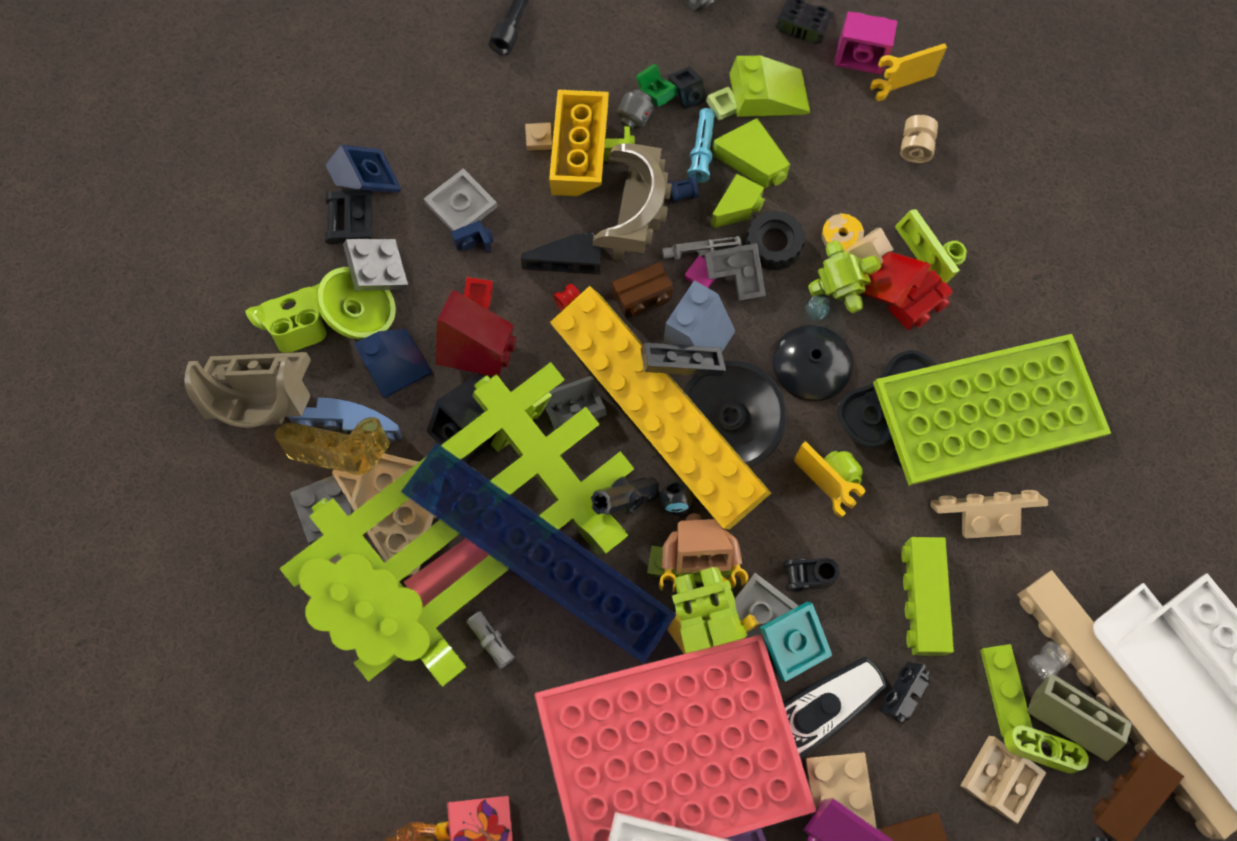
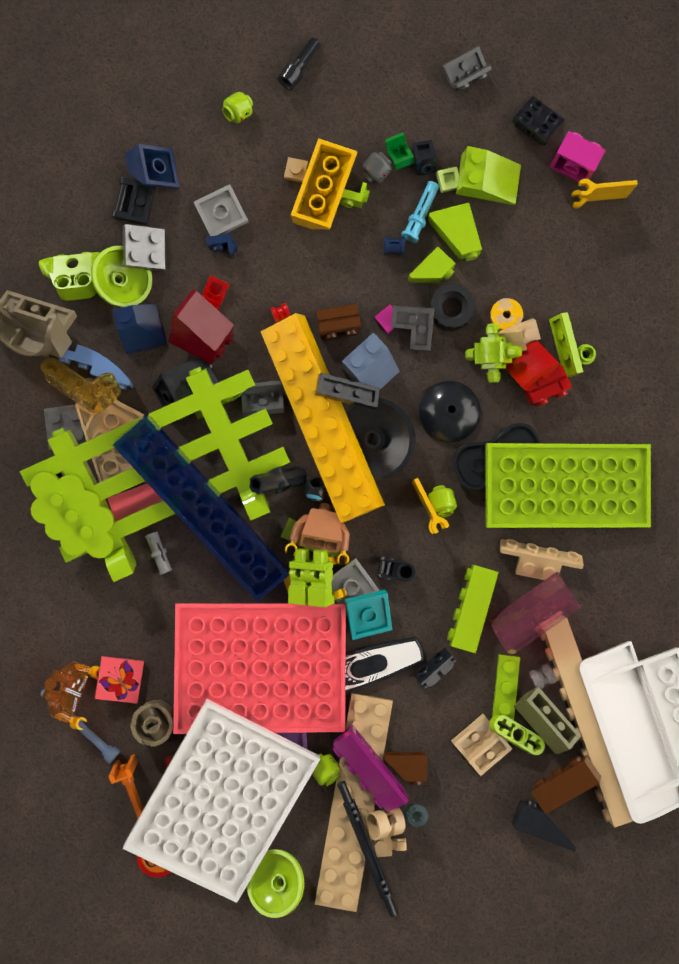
camera: 20 degrees right, 15 degrees up
(449, 84) = (237, 107): none -> lime head
(565, 255) = (295, 278): black slope -> none
(641, 201) = (357, 251): dark tan piece -> none
(700, 247) = (395, 298): light grey piece -> none
(817, 307) = (466, 371): clear light blue plate -> none
(919, 139) = (592, 251): tan wheel -> none
(1011, 576) = (534, 613): none -> clear pink slope

